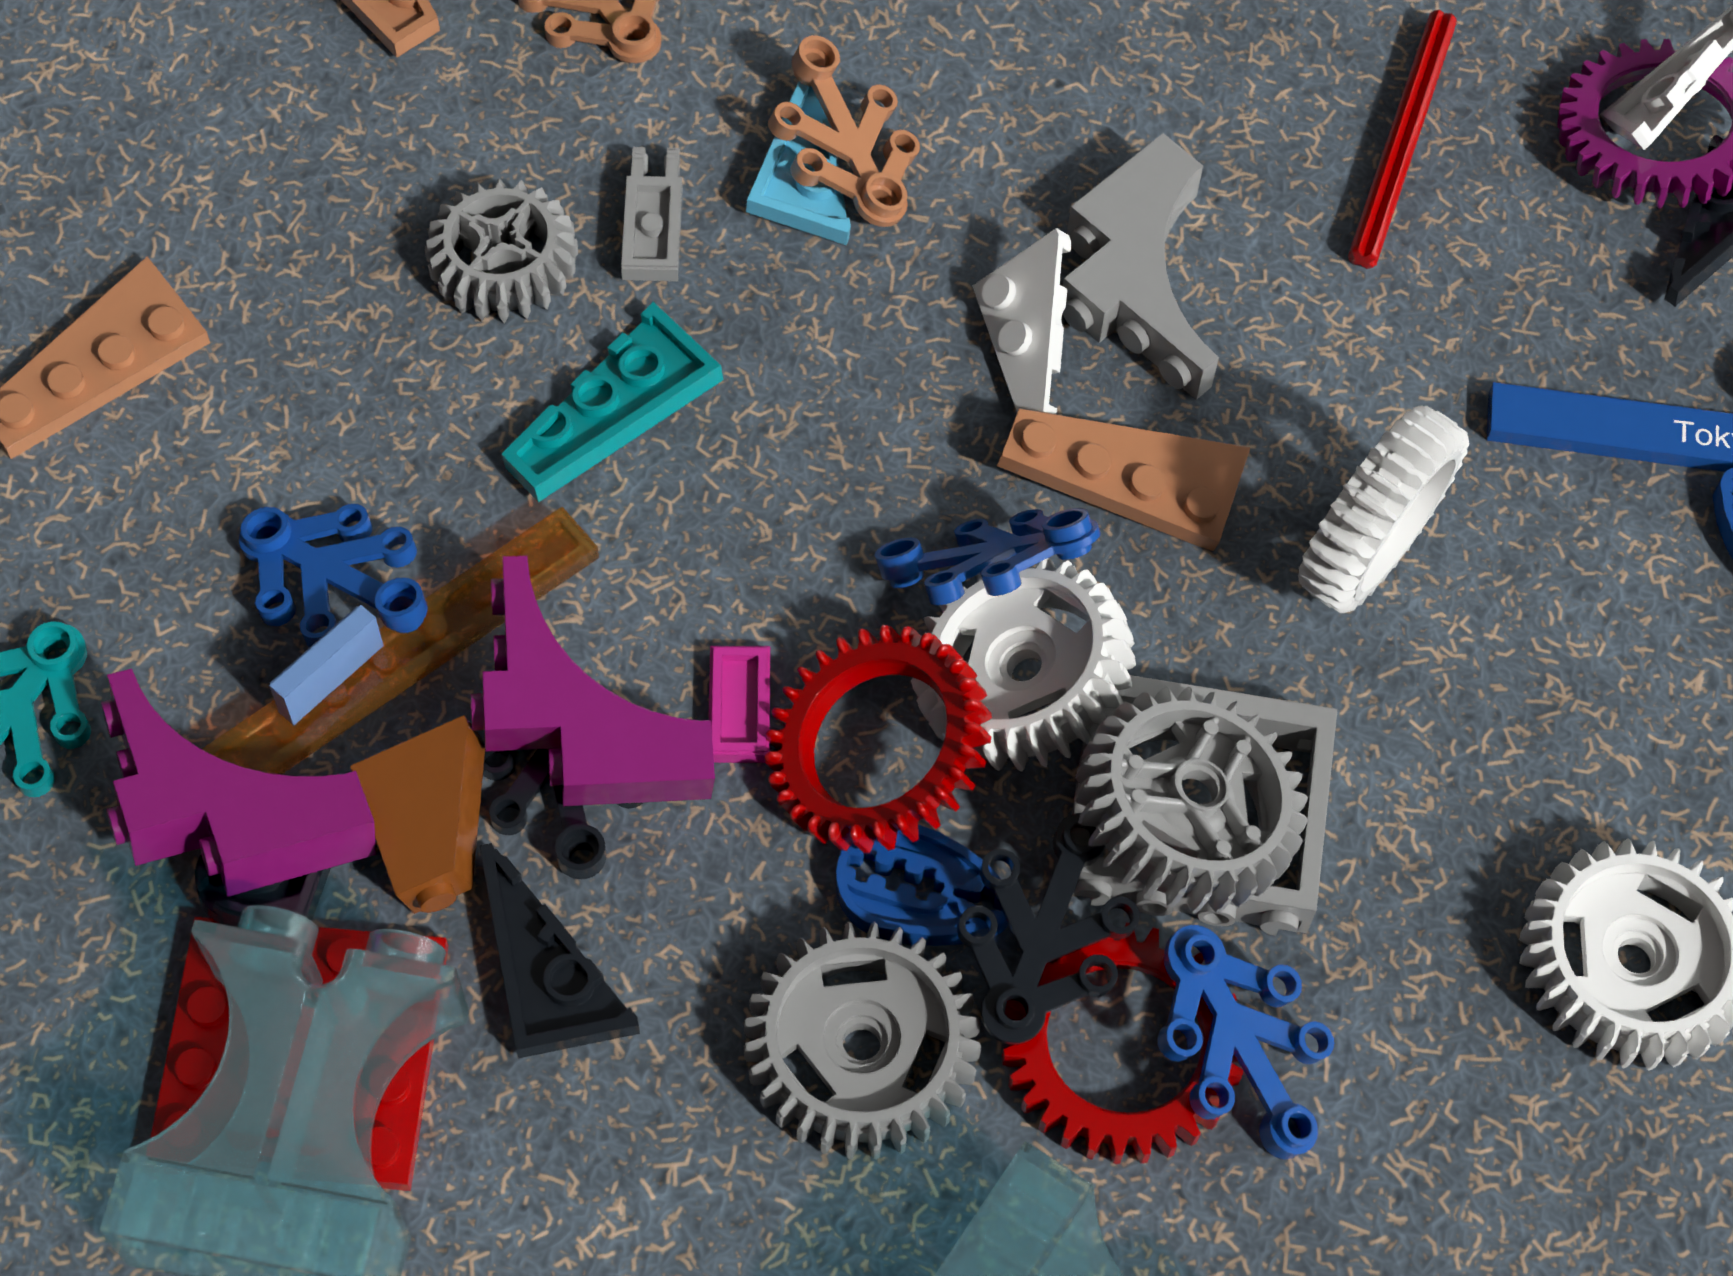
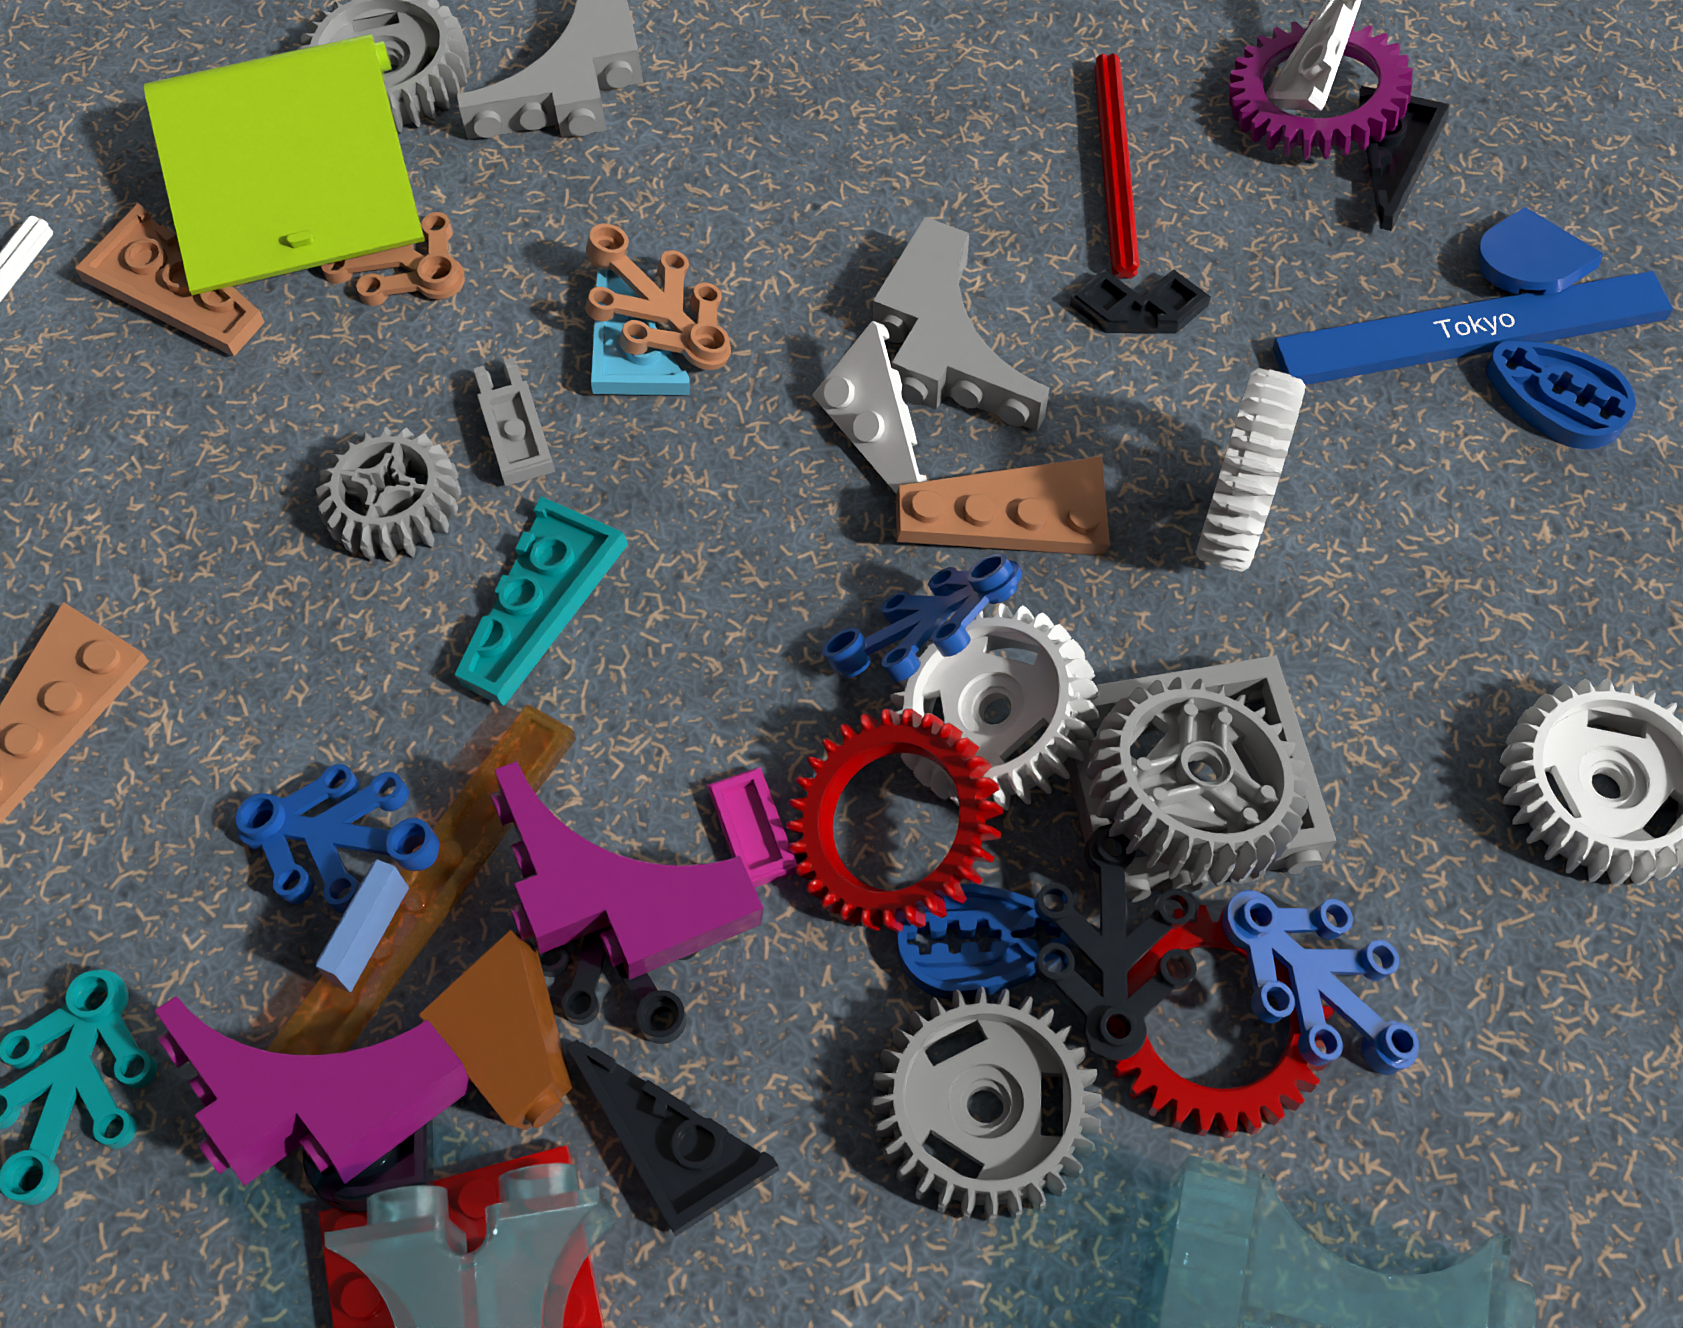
camera: 15 degrees left, 0 degrees up
(1340, 299) = (1160, 310): none -> black tile

